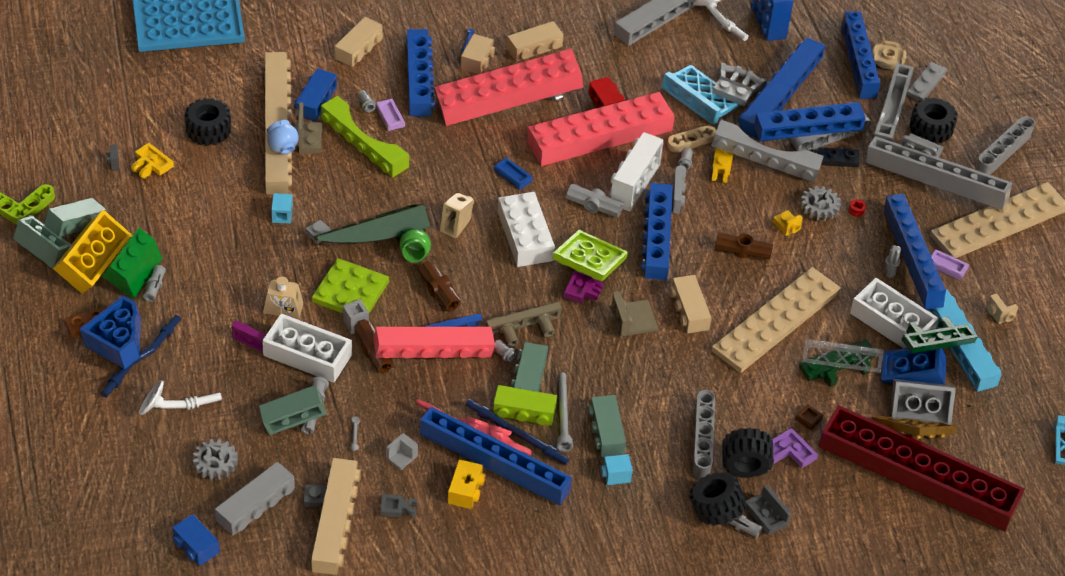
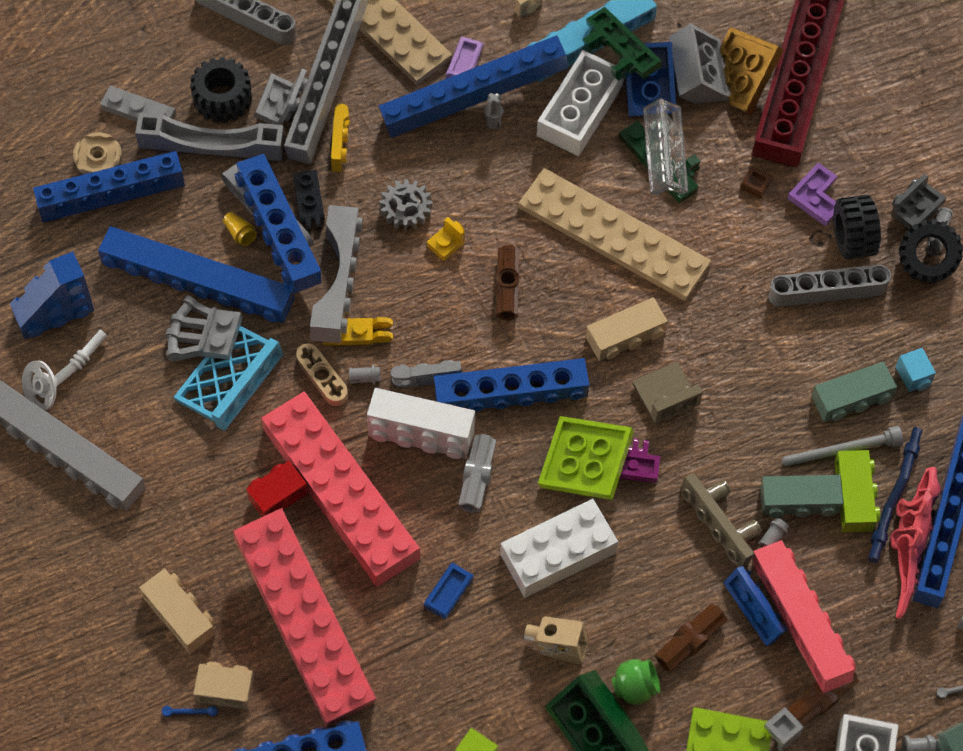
camera: 100 degrees left, 15 degrees up
(857, 208) = (393, 172): red bush -> none
(885, 178) = (340, 135): none -> yellow hinge

